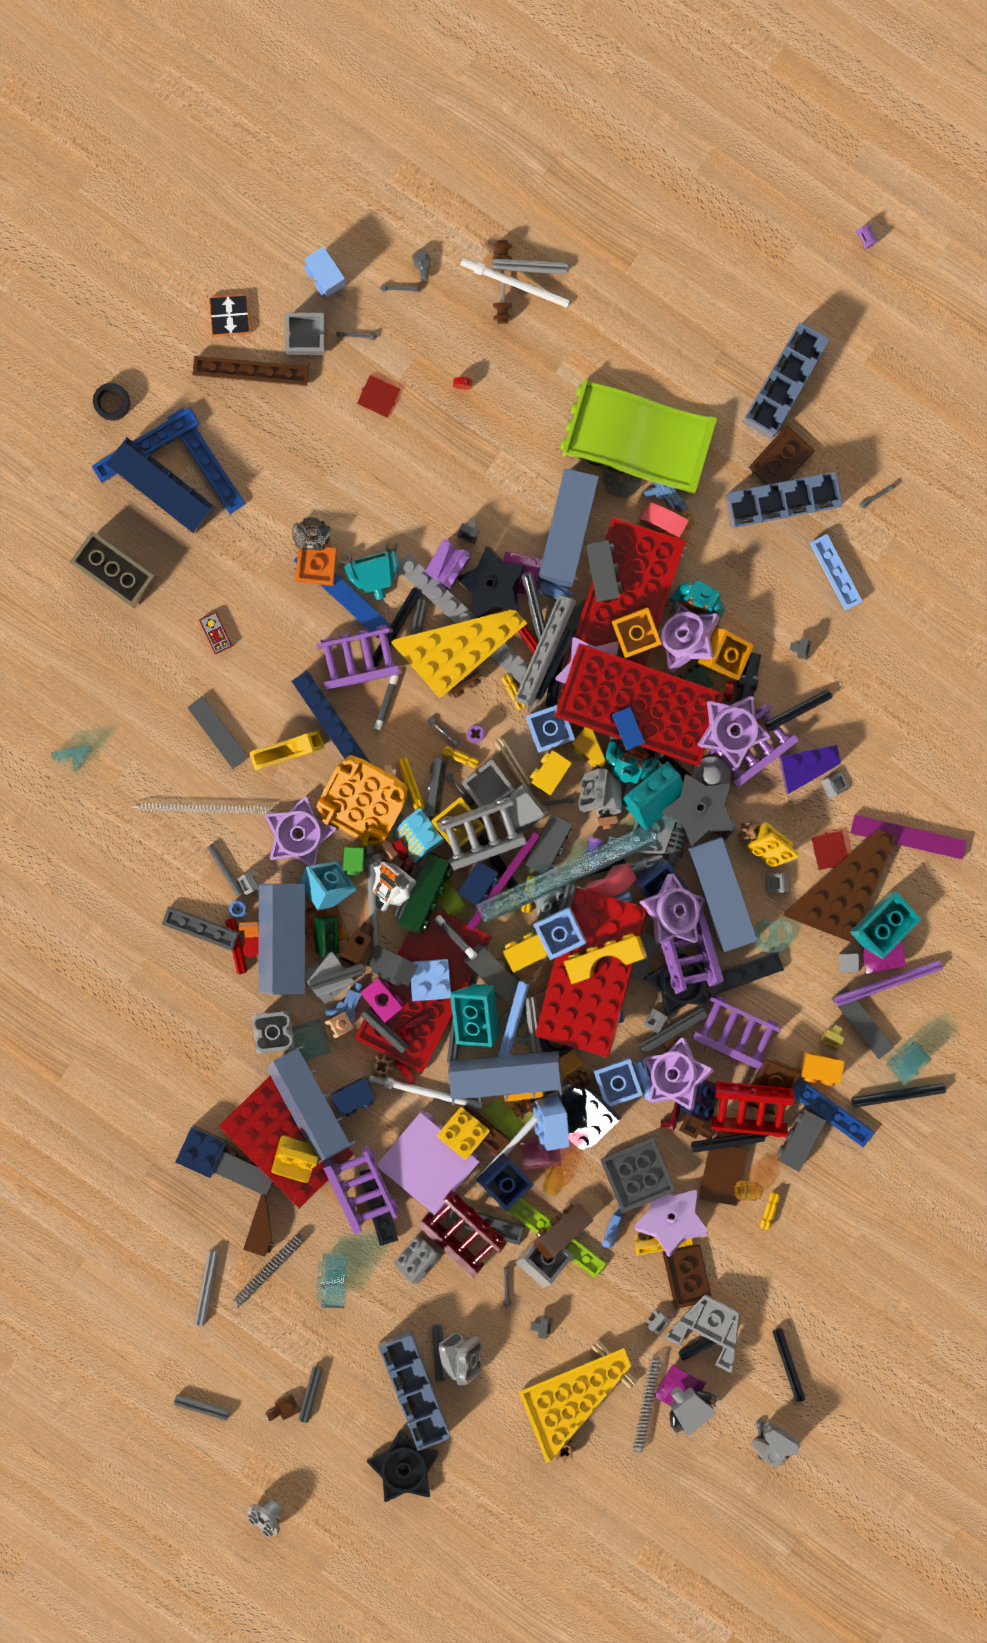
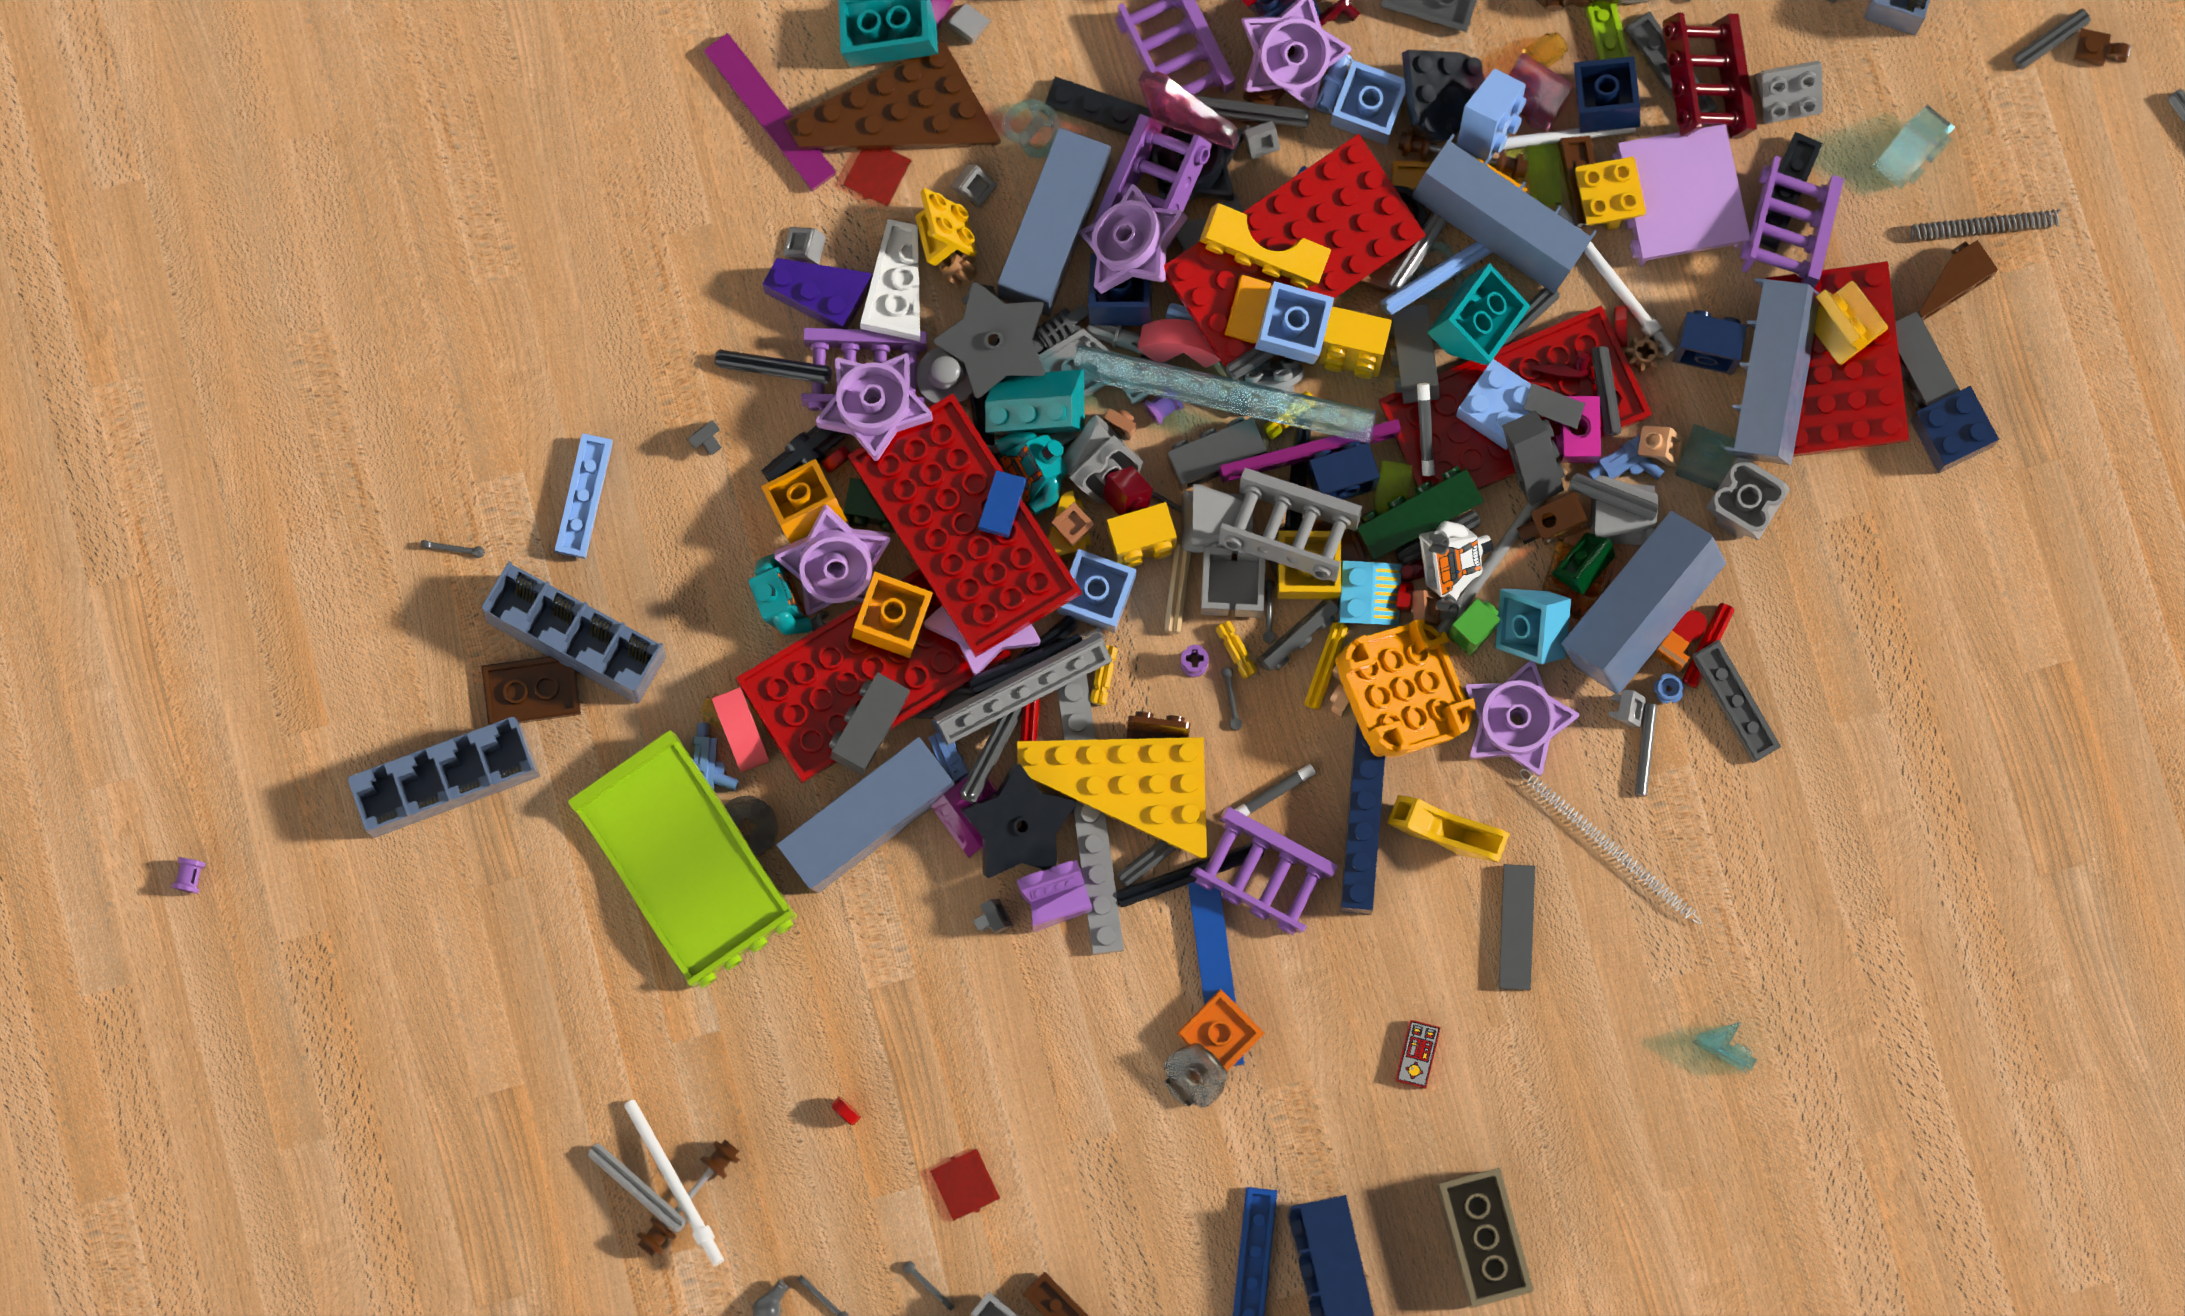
camera: 135 degrees left, 10 degrees down
(206, 1288) = (2079, 264): light grey axle -> none
(373, 571) = (1155, 964): teal torso -> none
(402, 998) = (1554, 406): none -> dark grey sticker
(574, 787) = (1127, 491): none -> dark red brick
(587, 749) = (1073, 524): none -> nougat plate
(588, 922) = (1248, 309): none -> light orange tile
(701, 998) = (1180, 110): none -> clear pink plate
(772, 797) = (894, 289): none -> white wing

